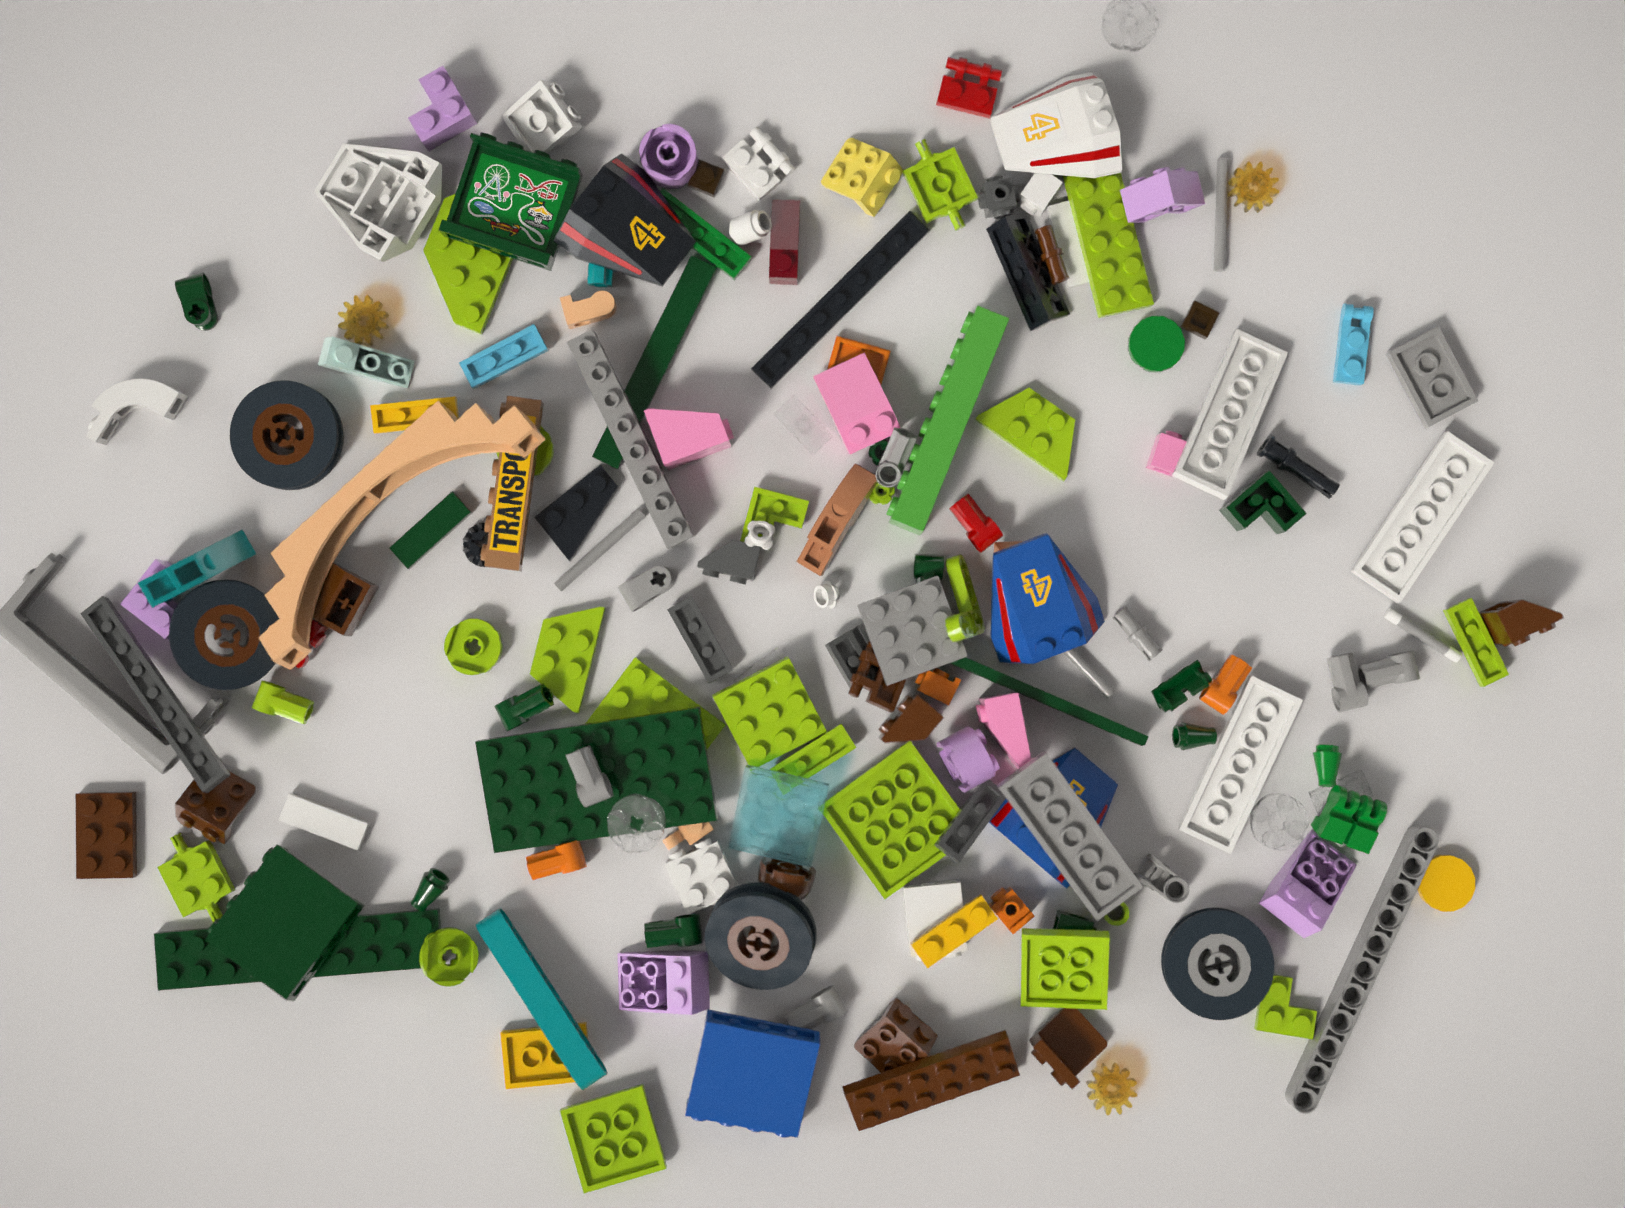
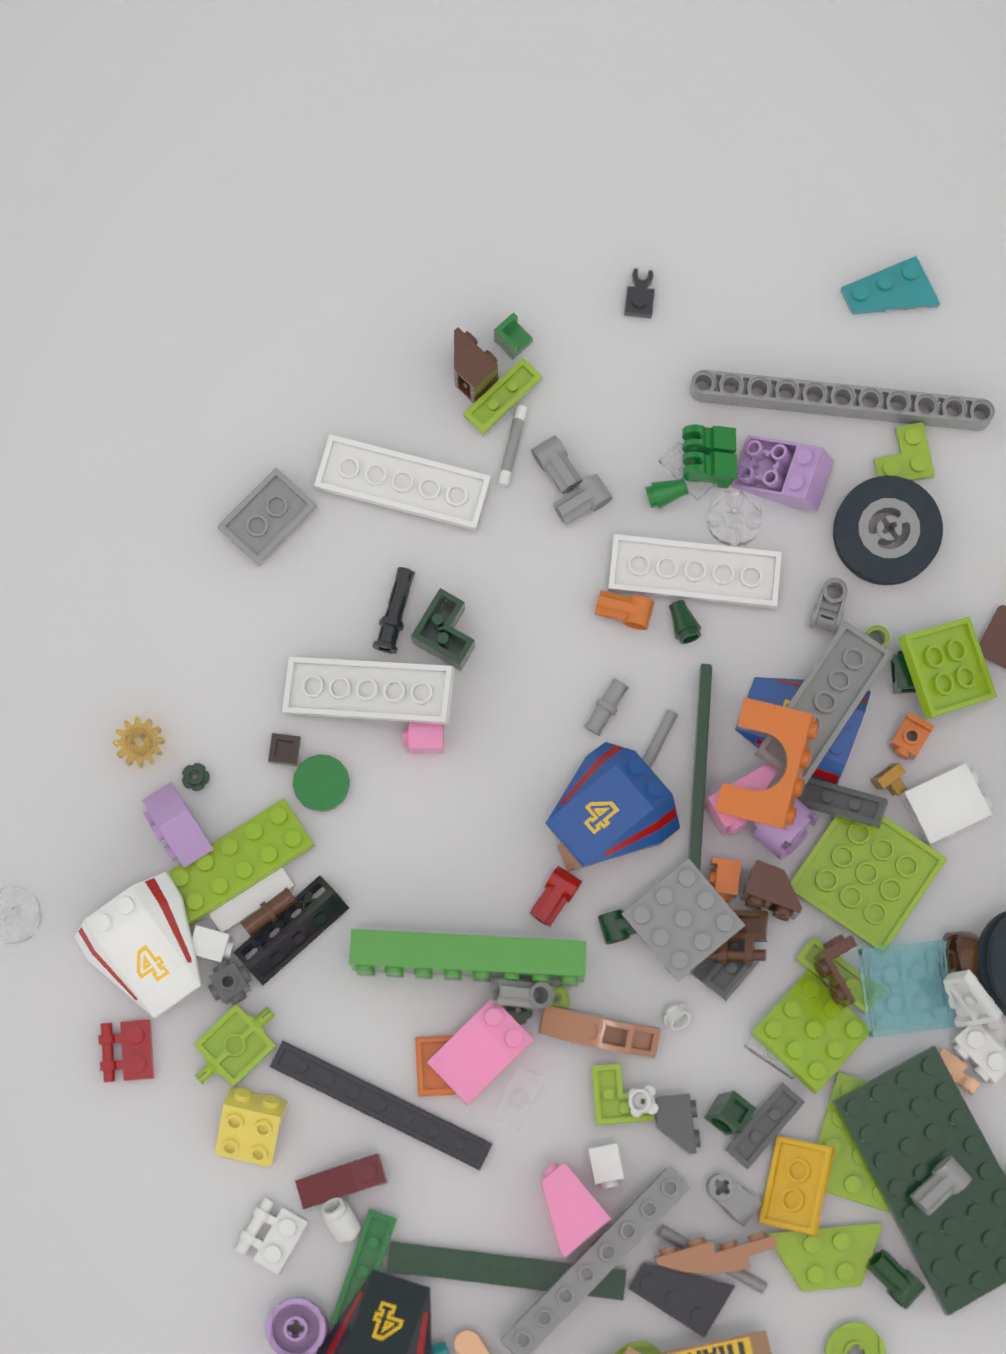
camera: 105 degrees left, 10 degrees down
(601, 539) = (703, 1259): none -> nougat slope
(620, 818) = (967, 1105): clear plate -> none
(637, 648) = (796, 1185): none -> yellow tile
(706, 178) = (303, 1283): dark brown plate -> none
(715, 482) = (606, 1165): none -> white brick
(722, 611) = (730, 1113): none -> dark green brick
(745, 868) = (970, 1000): none -> white wing
(836, 760) = (827, 969): none -> reddish brown bracket
(954, 931) = (952, 782): yellow plate -> none
(969, 620) = (653, 868): lime beam -> none
(977, 874) = (890, 779): none -> pearl gold tile
(1034, 429) = (443, 871): lime wing -> none
(1050, 793) = (776, 804): none -> orange arch
(1171, 692) = (651, 657): dark green hinge -> none
(1196, 234) = (195, 784): none -> dark green plate
(1221, 214) = (173, 764): light grey bar -> none
(1352, 345) = (260, 599): medium azure plate -> none
(1447, 883) = (734, 349): yellow tile -> none
(1457, 1061) = (891, 288): none -> teal wing
(1531, 810) = (640, 298): none -> black plate
(1533, 672) = (512, 336): none -> green panel

